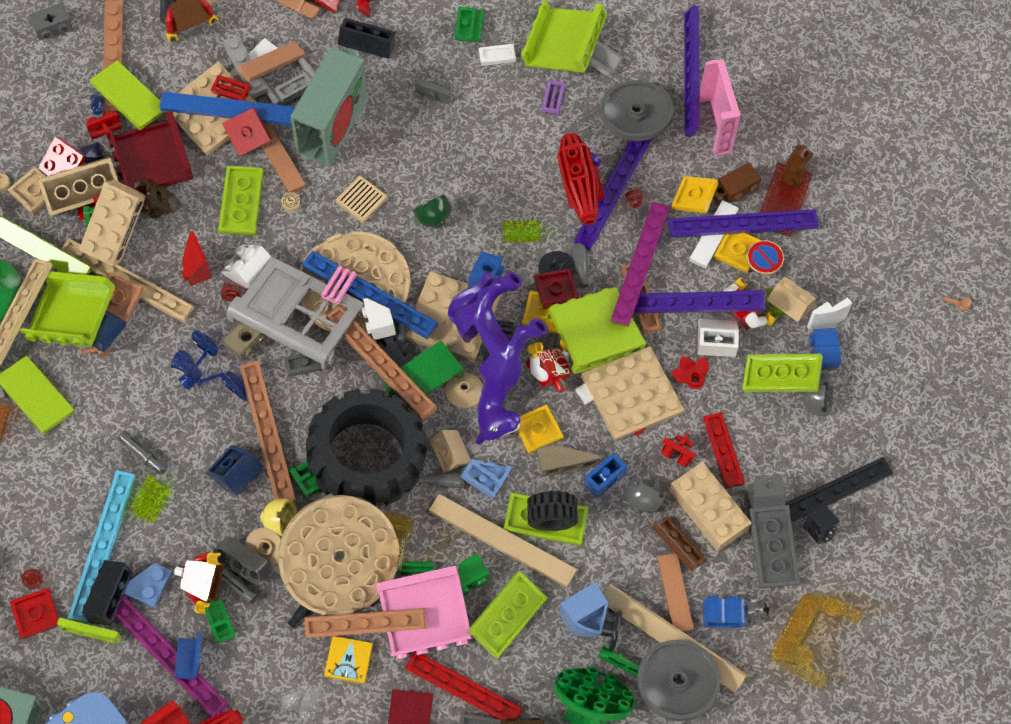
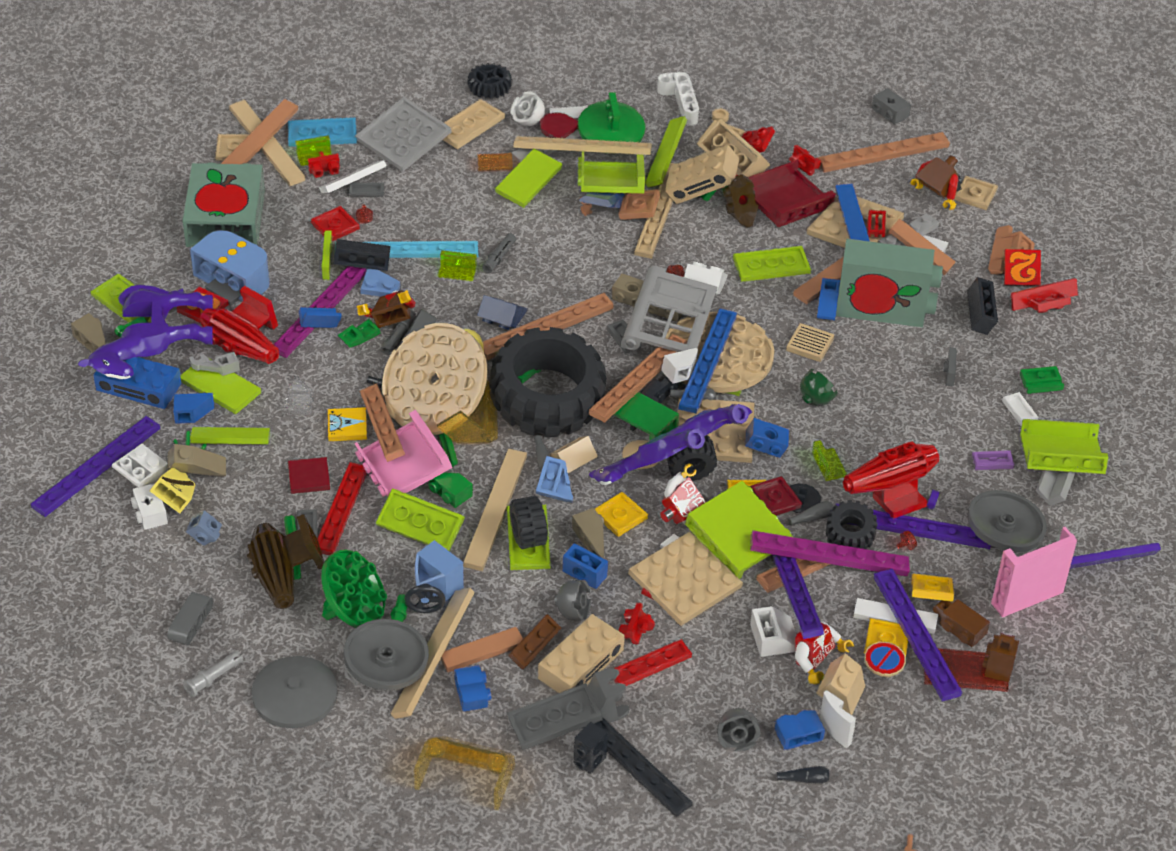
camera: 75 degrees right, 20 degrees down
(92, 152) = (774, 160): dark blue slope -> none
(97, 104) = (819, 149): clear blue arm -> none
(127, 95) = (839, 164): lime tile -> none
(192, 374) = (580, 241): clear blue plant -> none
(194, 262) = (694, 242): red slope -> none
(247, 131) = (834, 245): plate -> none
(290, 202) = (785, 295): tan tile -> none
(315, 164) = (828, 299): none -> blue slope
(338, 272) = (705, 331): bright pink tile -> none
(621, 224) = (851, 513): none -> black tyre
(689, 369) = (728, 622): red plate -> none
(757, 610) = (486, 710): flat silver gear -> none
(782, 373) = (751, 688): lime tile -> none
(872, 355) = (813, 774): none -> black piece

